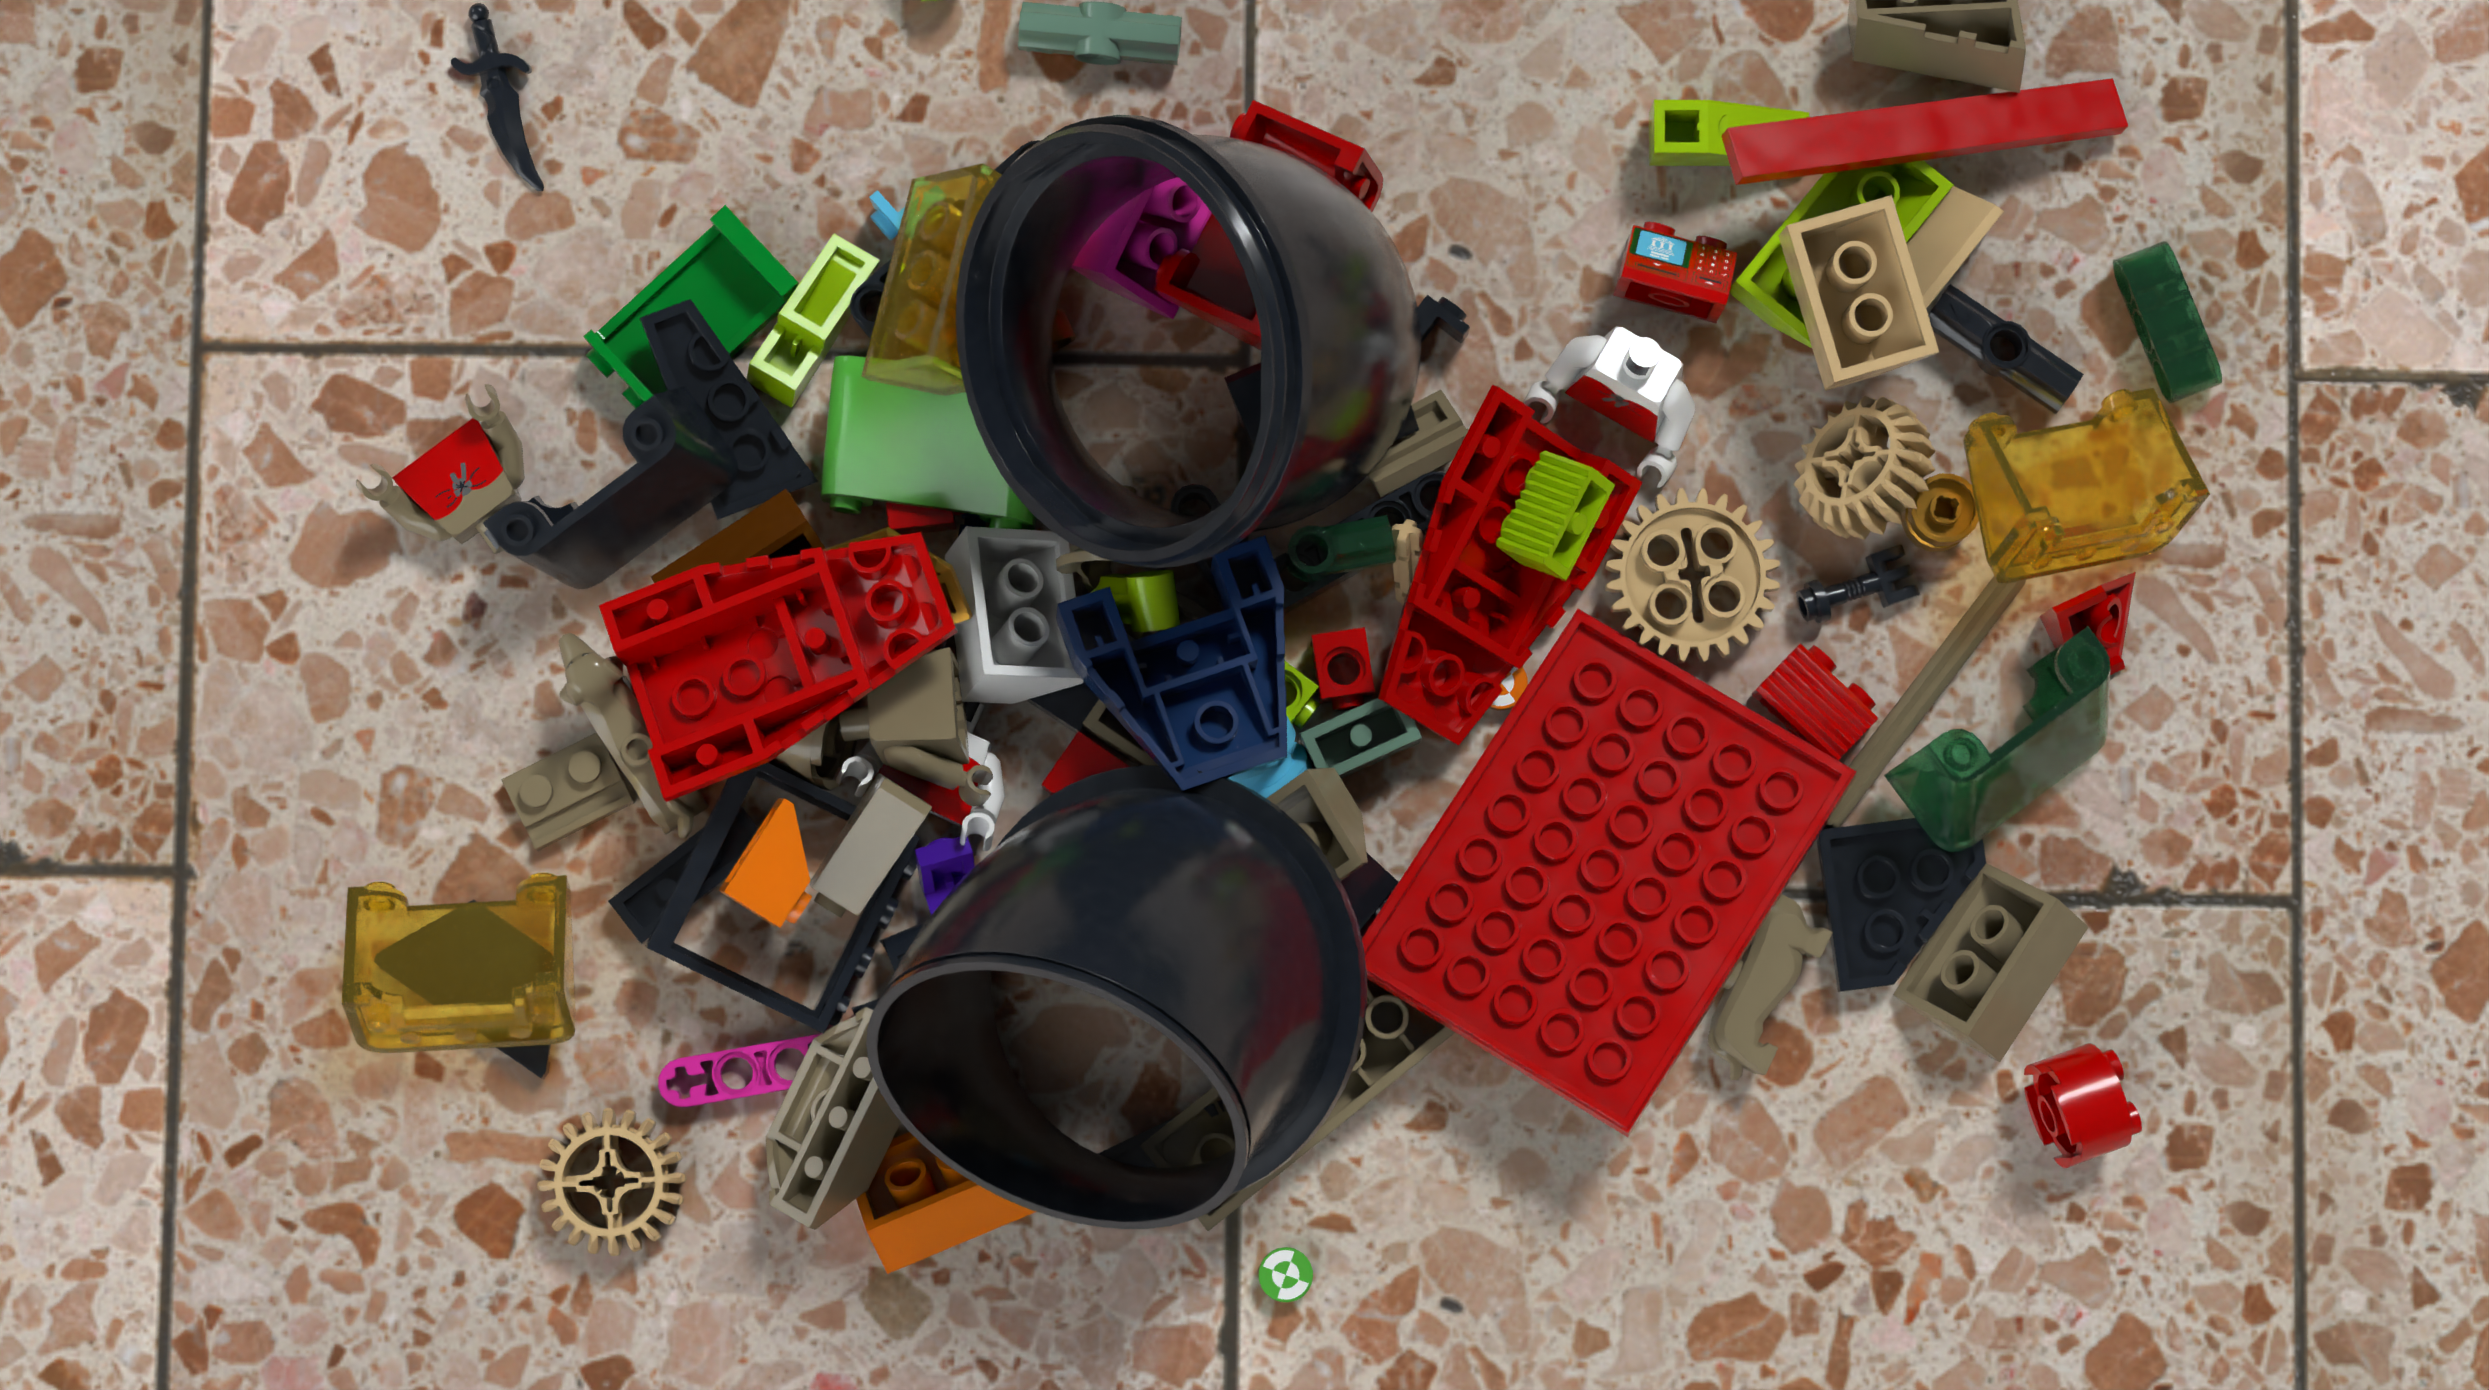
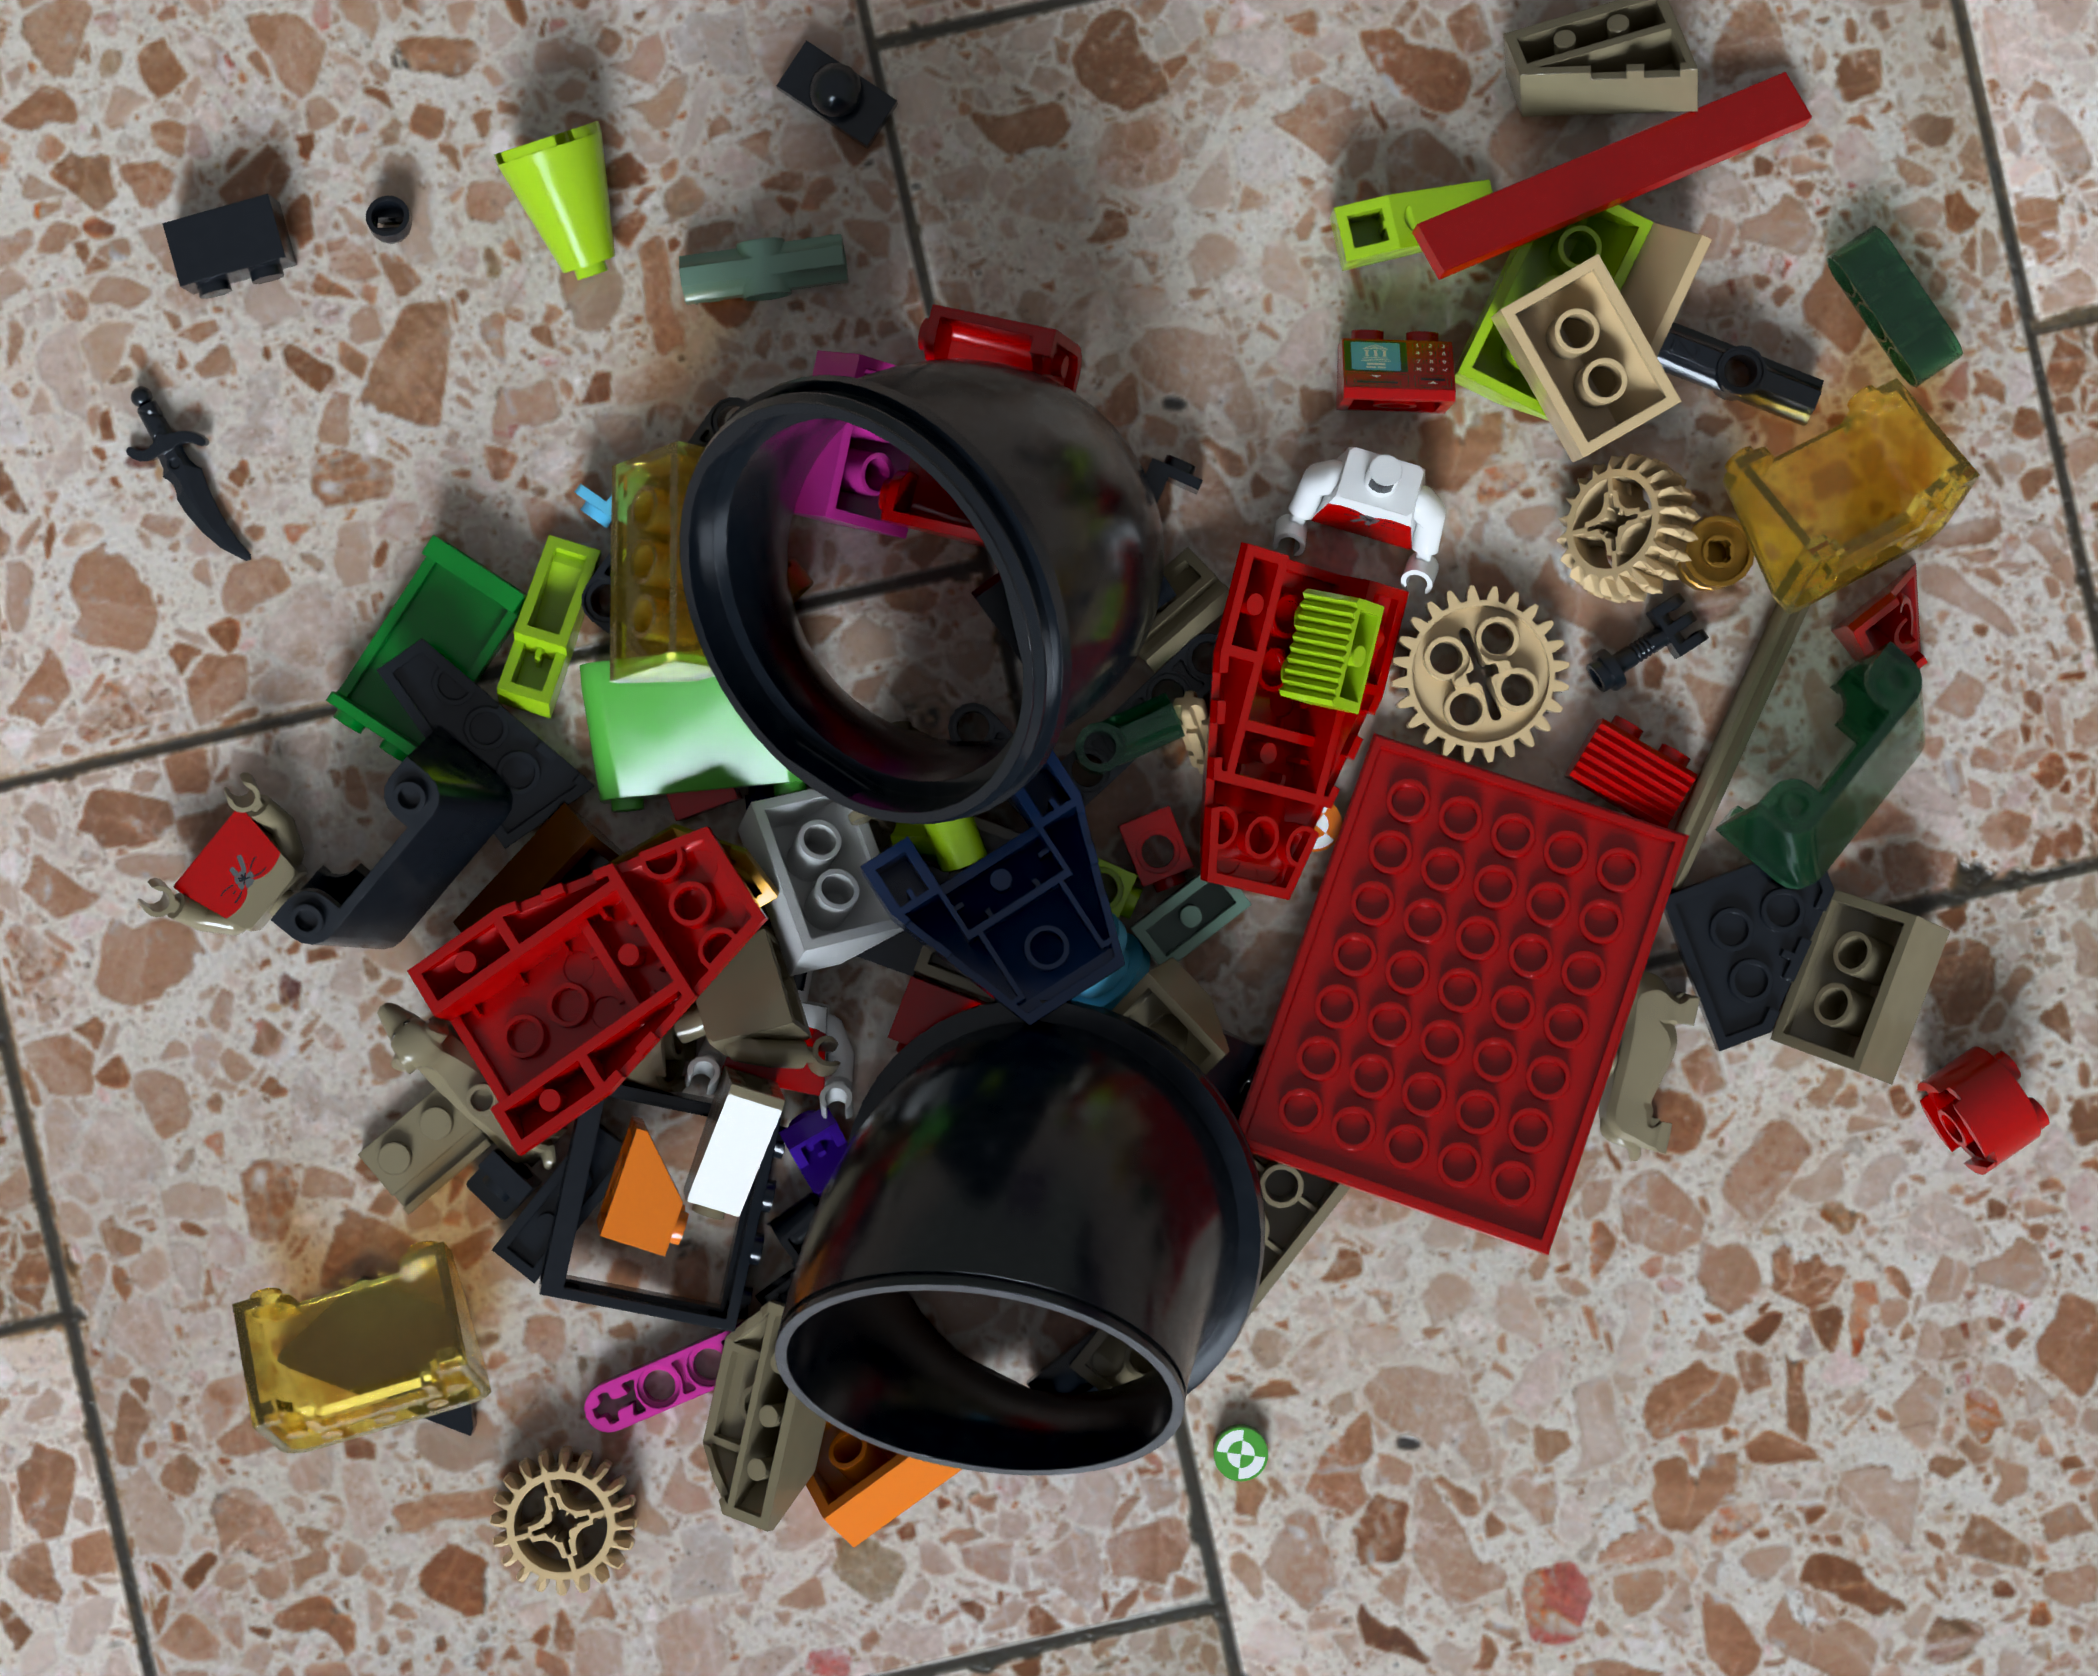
camera: 10 degrees left, 5 degrees up
(634, 839) = (502, 1183): none -> black bracket

